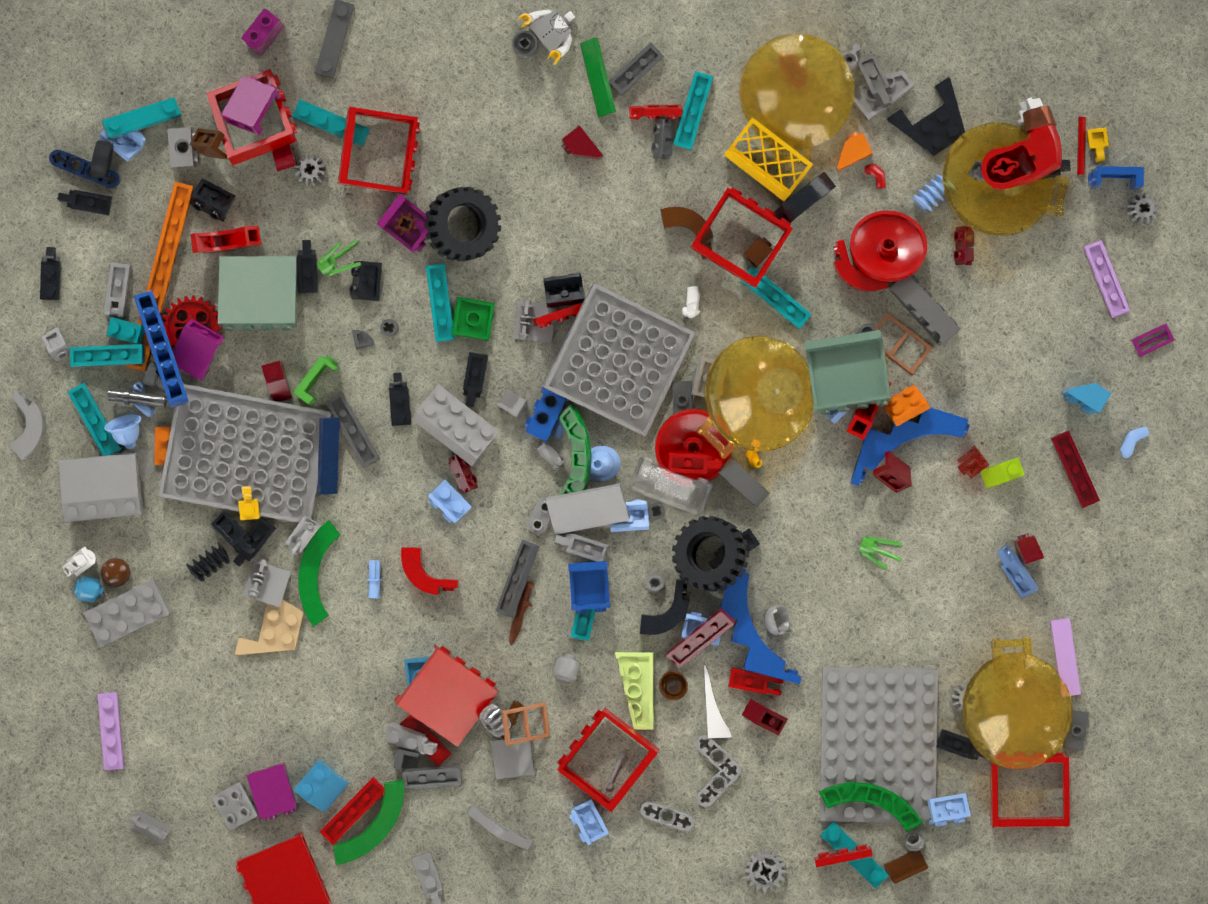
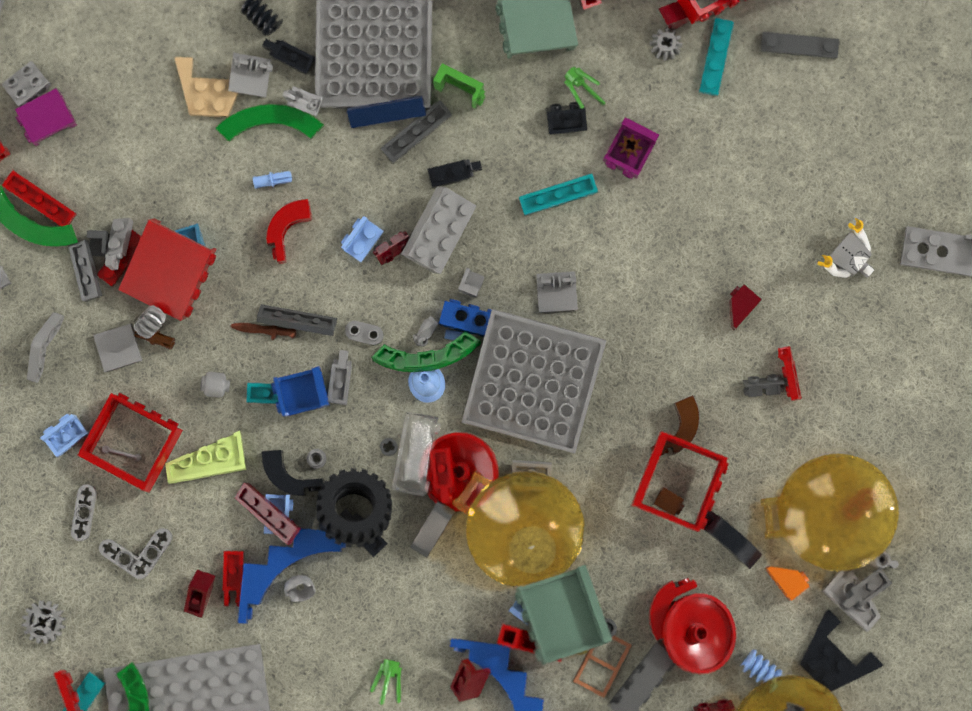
camera: 85 degrees right, 5 degrees down
(233, 533) = (293, 33): black hinge -> none
(248, 507) = (321, 42): yellow plate -> none
(277, 381) = (452, 48): dark red slope -> none
(307, 269) = (567, 59): black hinge -> none
(321, 786) = (58, 163): dark azure slope -> none
(362, 339) = (507, 125): dark grey tile -> none
(388, 333) = (523, 155): dark grey bush -> none
(411, 147) = (691, 74): red window -> none
(438, 224) = (658, 219): black tyre -> none
(472, 319) = (548, 229): green plate -> none
(474, 377) = (490, 241): black hinge -> none
(525, 44) = (831, 231): dark grey wheel -> none
(525, 724) = (138, 358): nougat window -> none
(561, 315) = (567, 316): red hinge -> none
(563, 290) = (593, 314): black bracket -> none
(587, 509) = (378, 376): light grey tile -> none
(598, 77) = (812, 310): green tile -> none
(636, 69) = (828, 346): dark grey plate -> none
(638, 517) = (378, 419): light blue bracket -> none
(673, 692) = (209, 495): reddish brown hair -> none
(681, 395) = (509, 451): dark grey plate -> none
(693, 110) = (798, 411): teal plate -> none
(693, 300) = (604, 445): white arm -> none
(715, 723) = (184, 545): white sticker -> none
(753, 459) = (457, 535): yellow arm -> none
(757, 172) = (746, 492): yellow fence -> none
(779, 300) = (623, 532): teal plate -> none
(878, 173) = (771, 609): red arm -> none
(906, 405) = (540, 681): orange plate -> none

